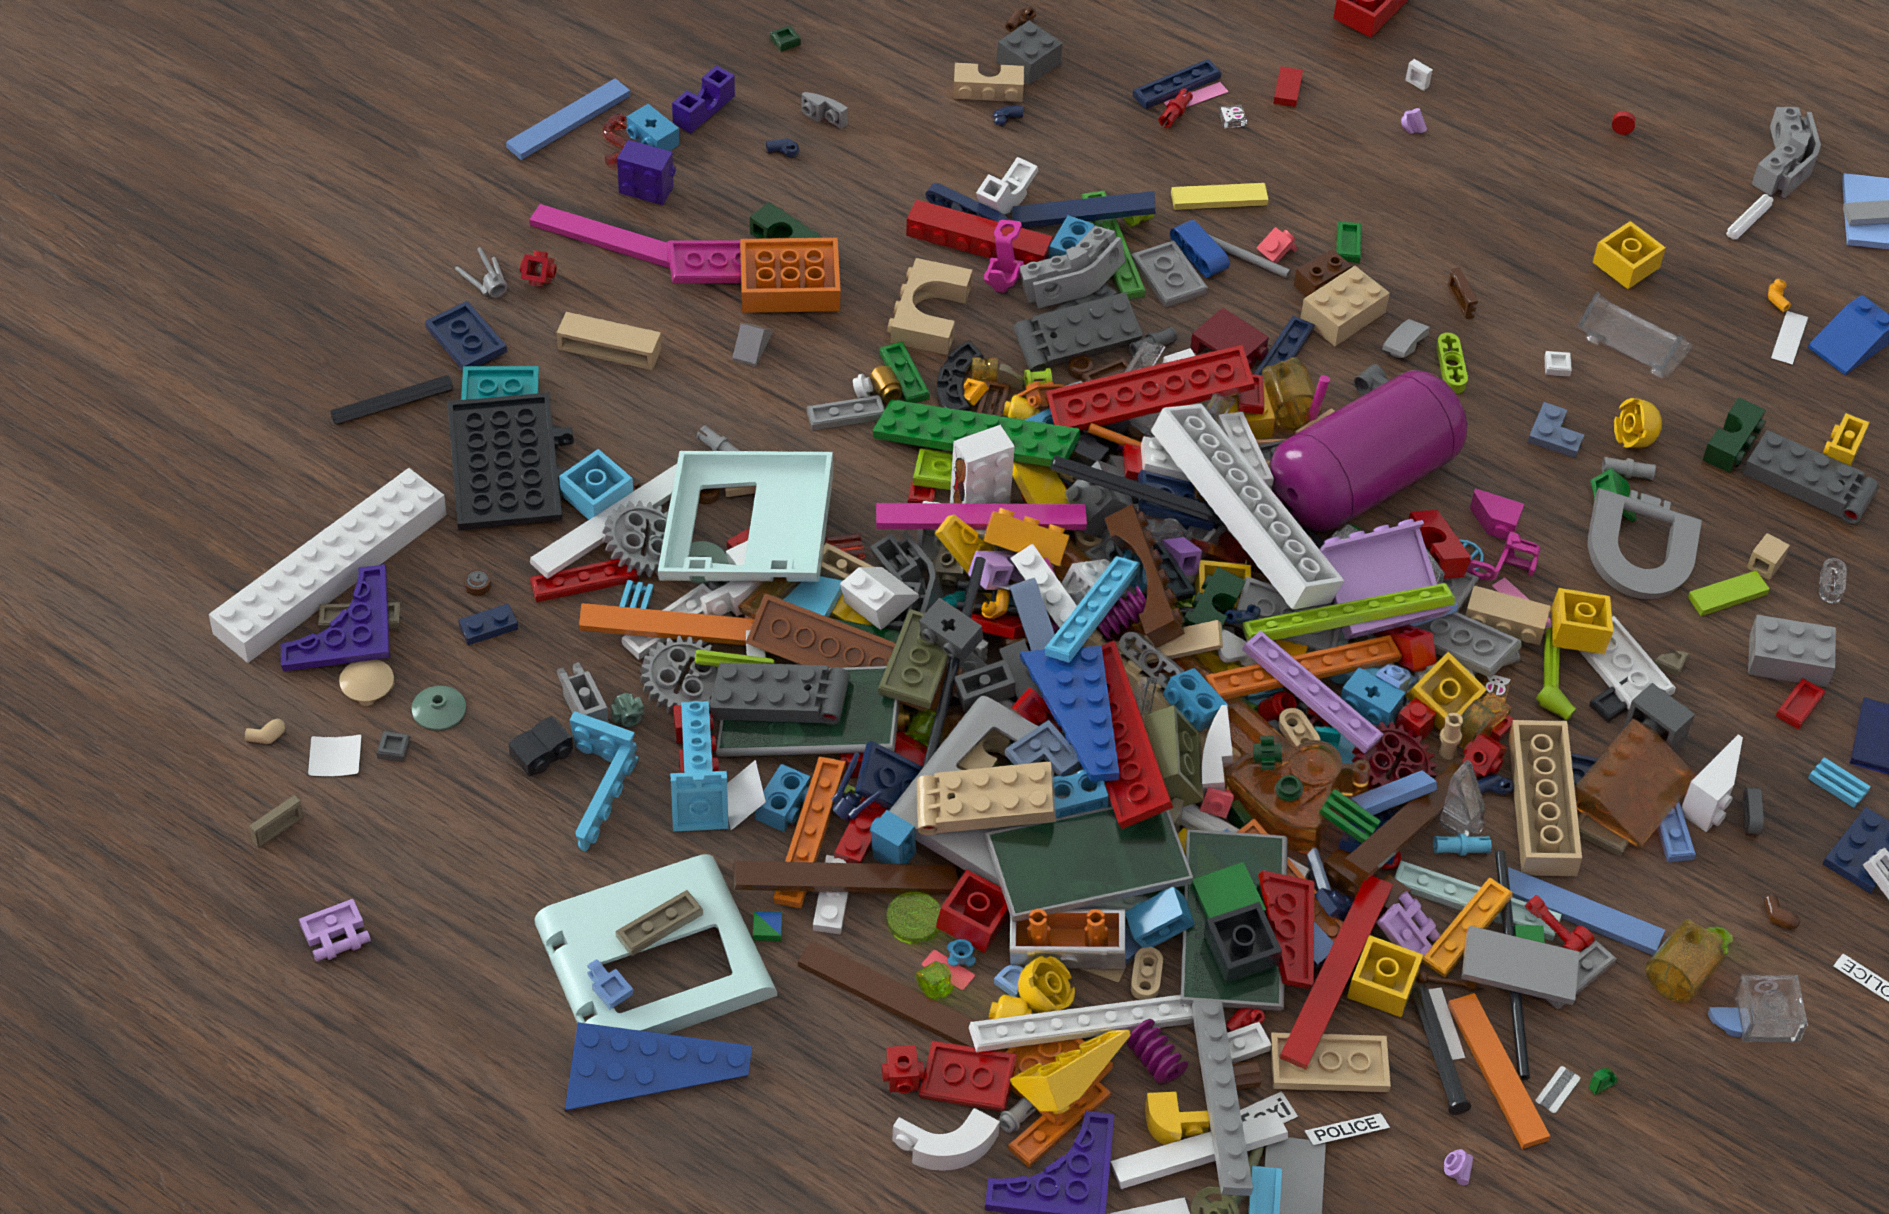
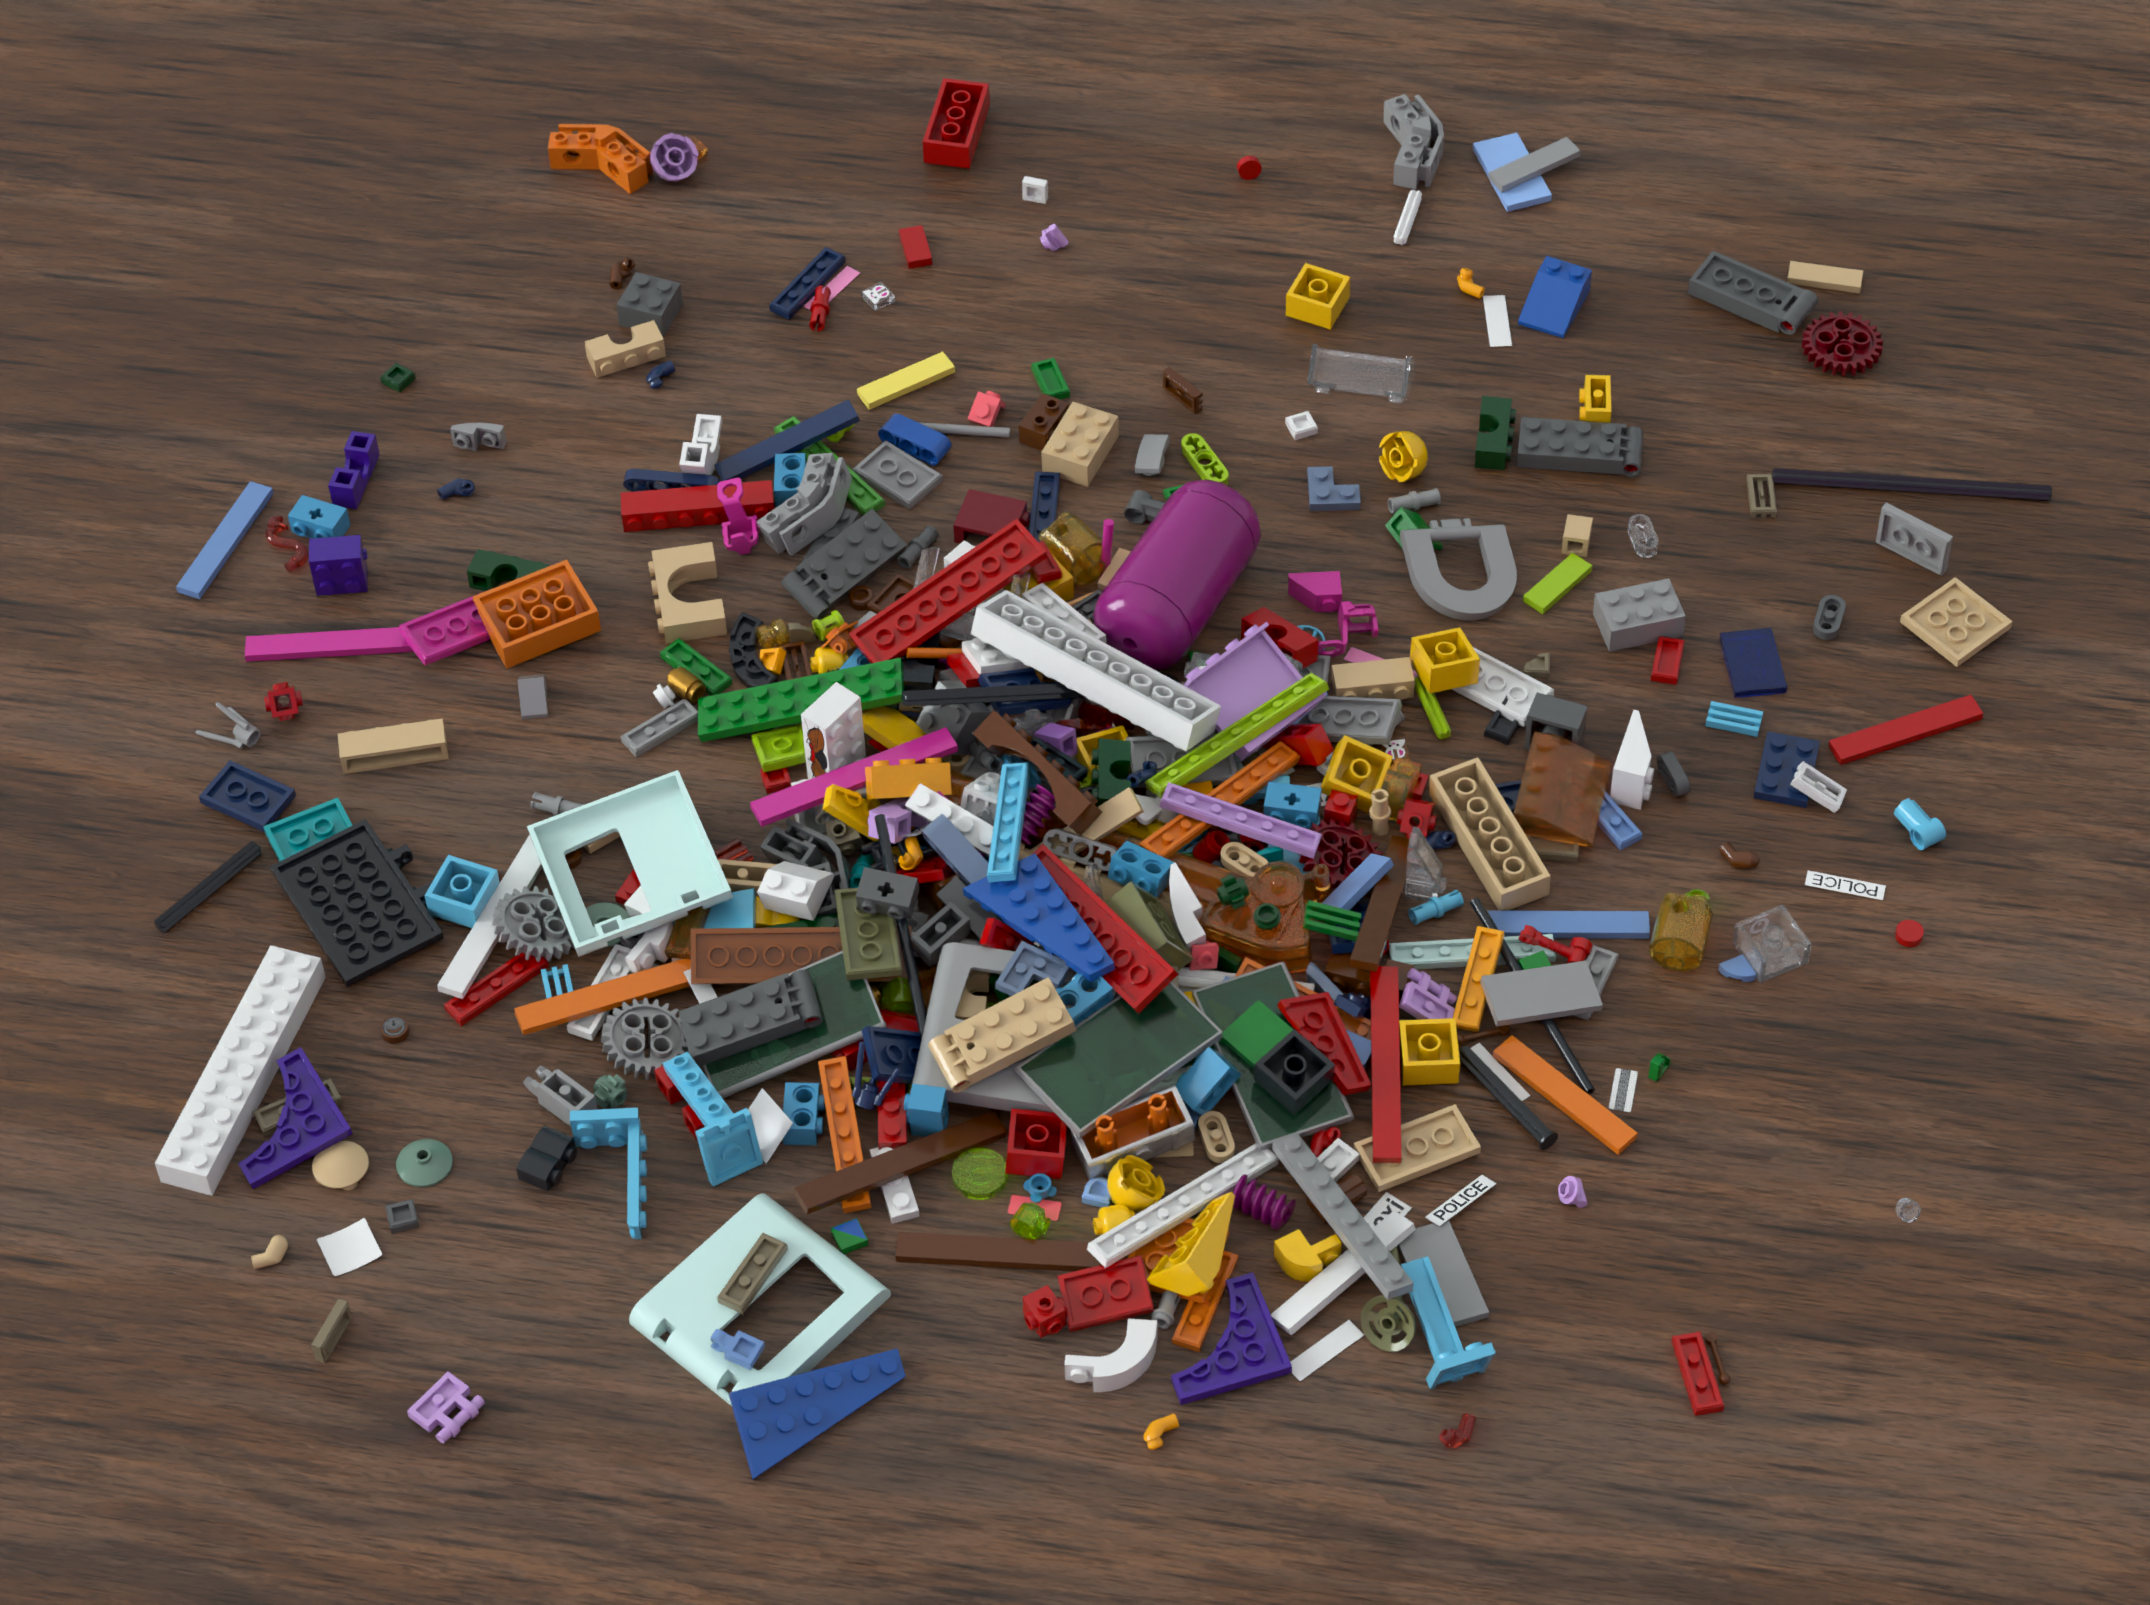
camera: 20 degrees left, 0 degrees up
(488, 624) = (428, 1065): dark blue plate -> none
(714, 658) = (672, 1009): lime axle -> none
(1397, 676) = (1305, 777): light blue slope -> none
(1555, 701) = (1454, 744): lime cone -> none

